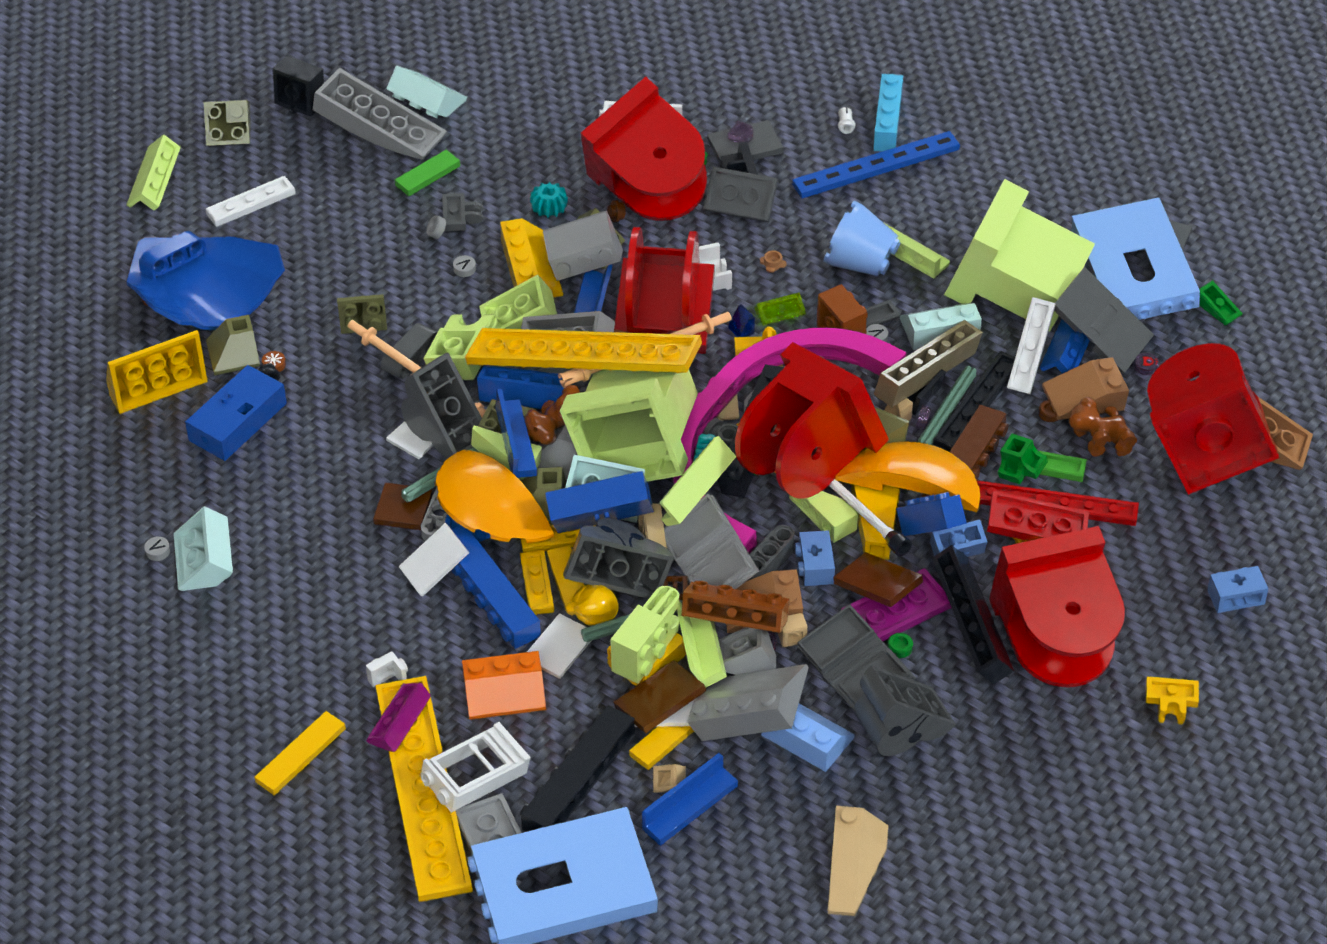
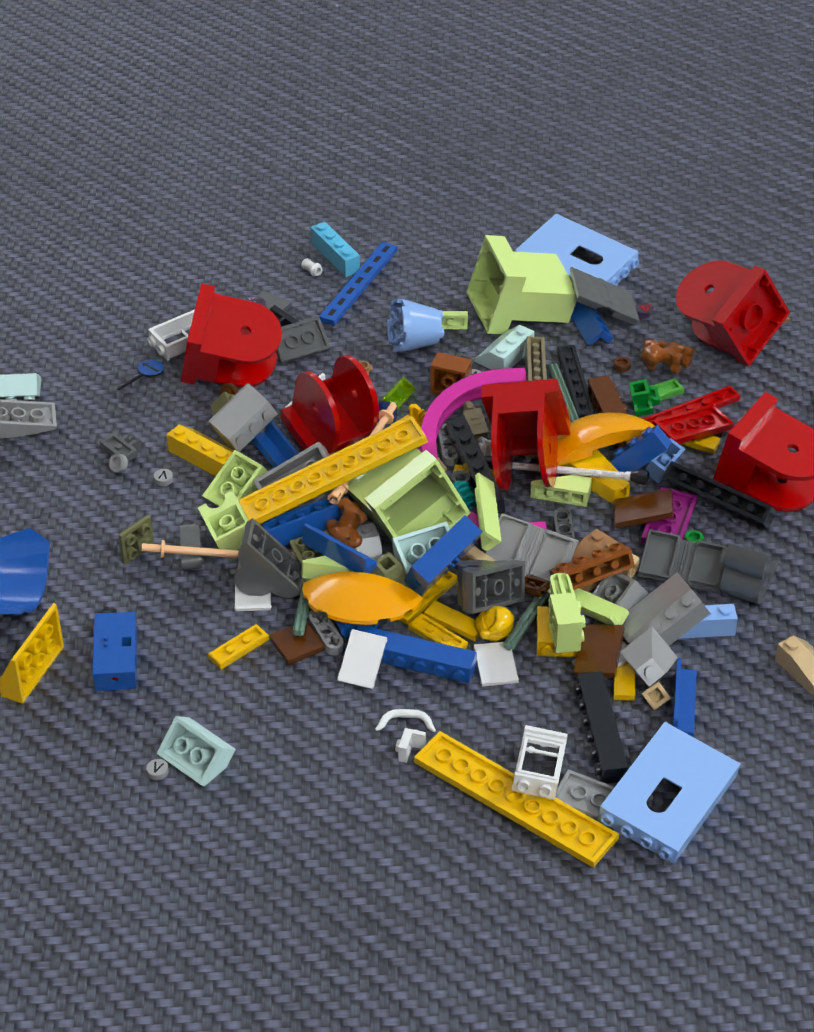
camera: 40 degrees left, 5 degrees down
(233, 346) = (71, 608): olive slope -> none
(275, 358) = (98, 604): dark orange tile -> none
(300, 753) = (410, 831): yellow tile -> none
(349, 477) = (238, 646): none -> yellow tile
(399, 716) = (453, 765): magenta slope -> none
(421, 639) = (405, 713): none -> white animal
(427, 172) = (69, 435): bright green tile -> none
(503, 685) = (494, 705): orange slope -> none
(548, 199) = (176, 407): teal gear -> none
(569, 144) = (147, 368): none -> piece
(691, 733) = (649, 656): none -> light grey slope
(816, 558) = (589, 516): medium blue brick -> none
(1031, 345) = (581, 329): white tile -> none
(1093, 379) = (629, 338): medium nougat slope -> none
(1218, 304) = (647, 258): green slope -> none

